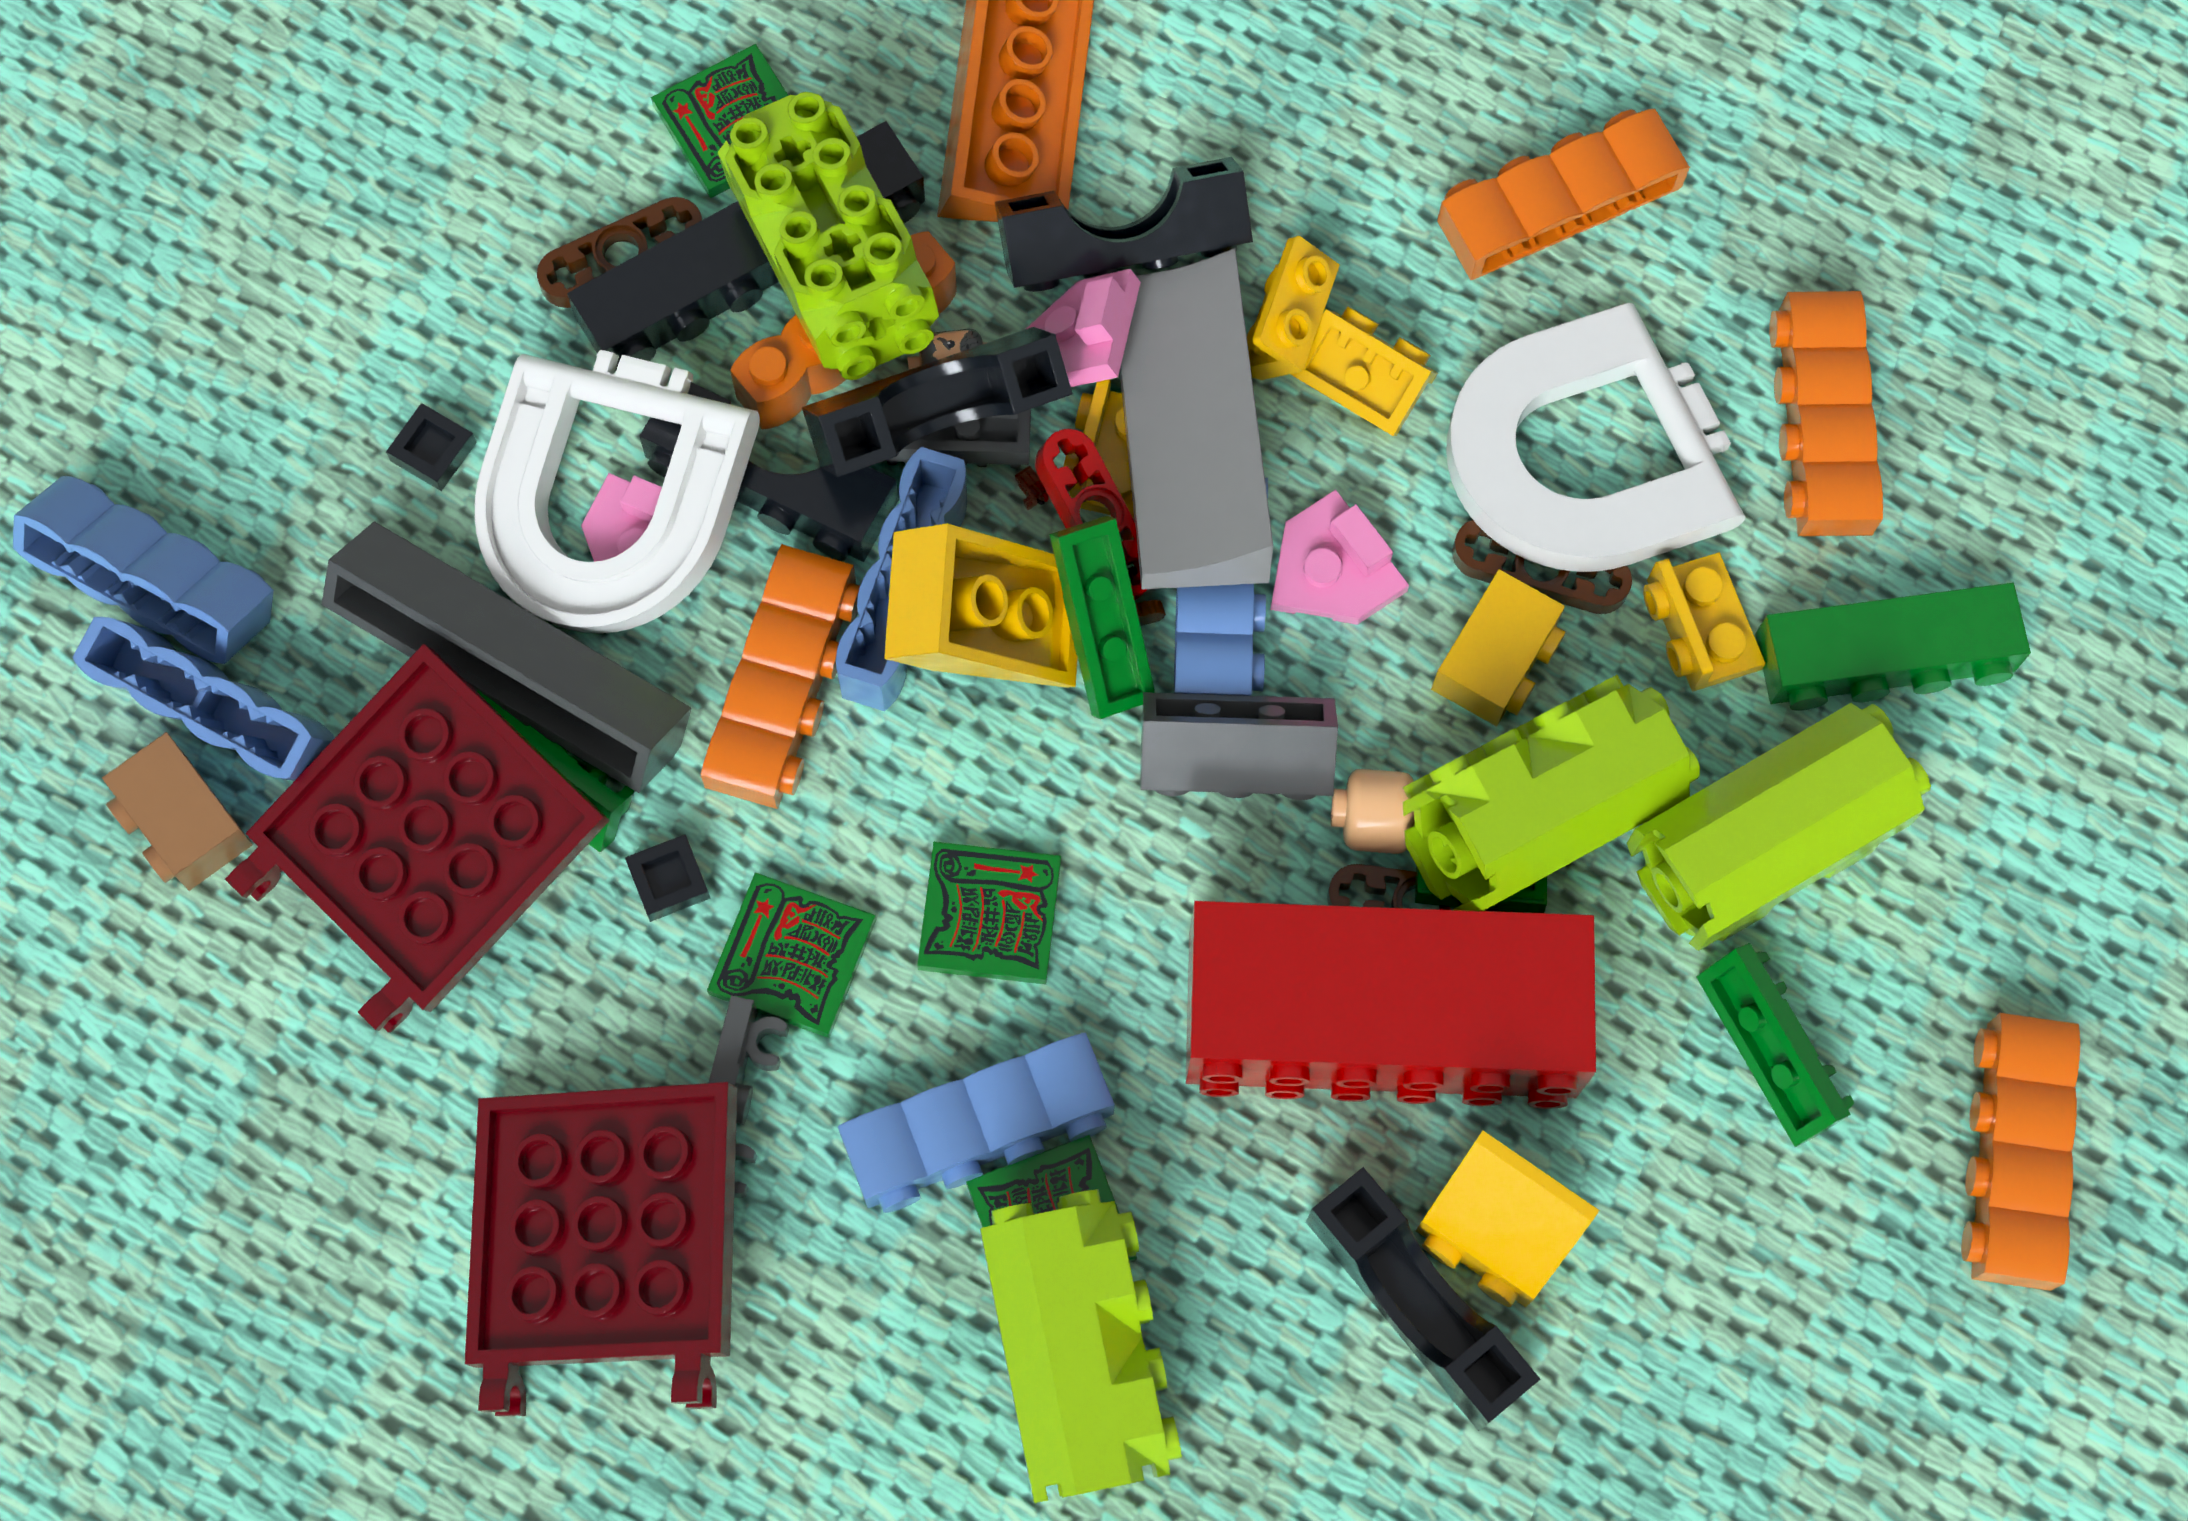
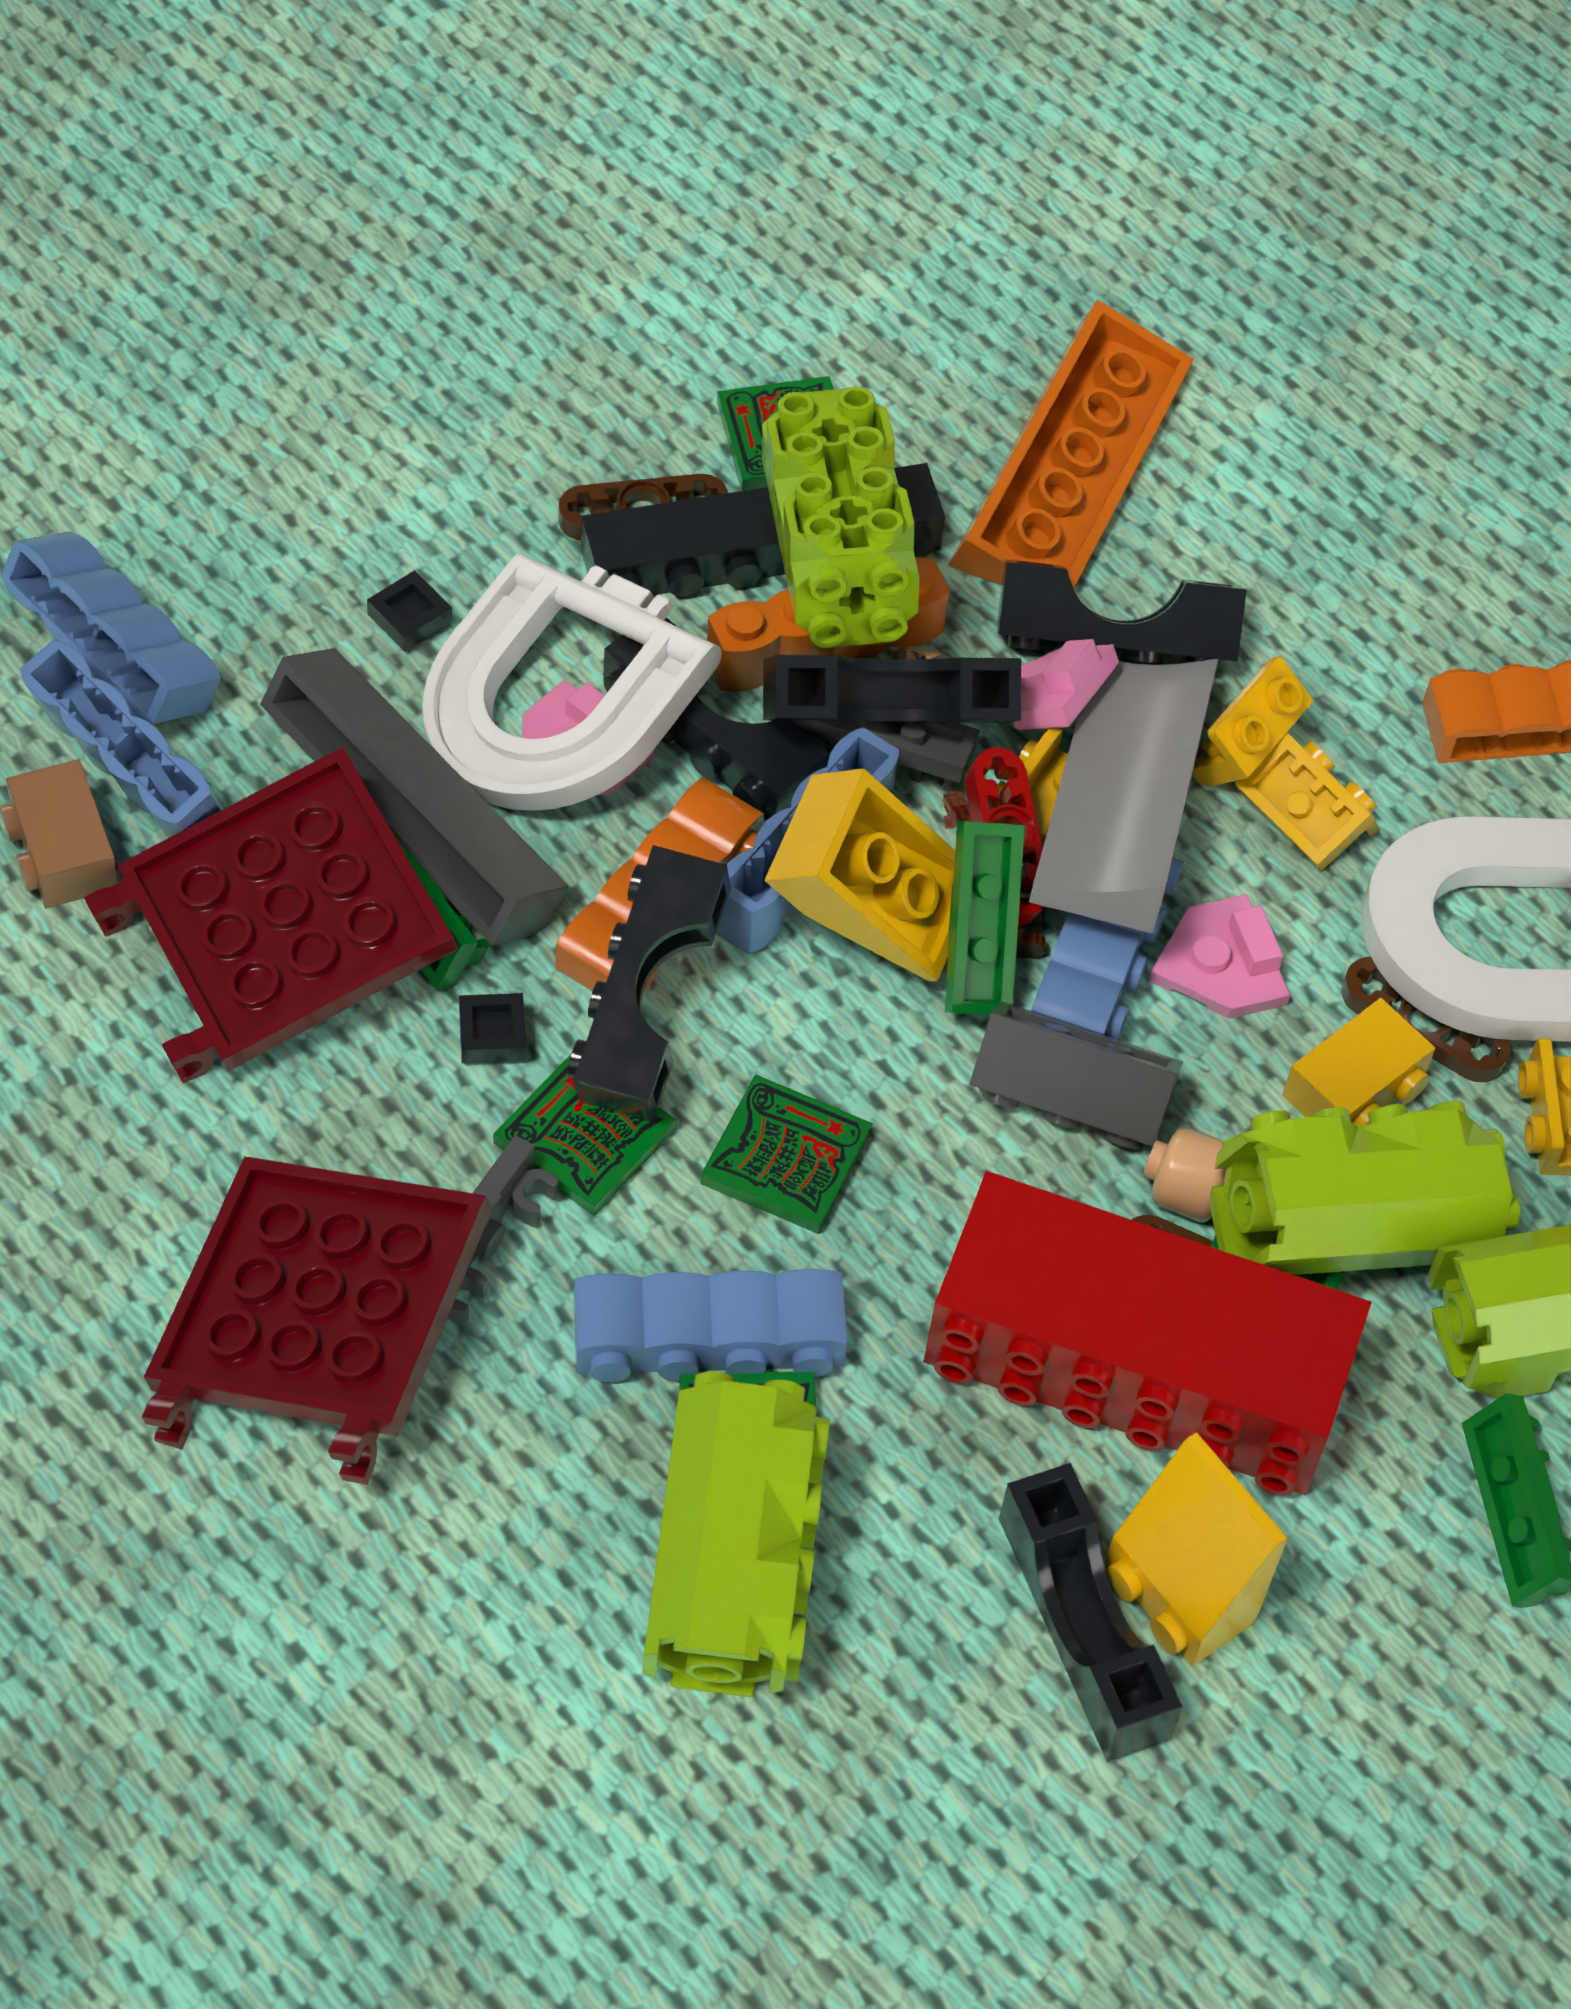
camera: 15 degrees right, 15 degrees down
(804, 713) = (673, 910): none -> black arch

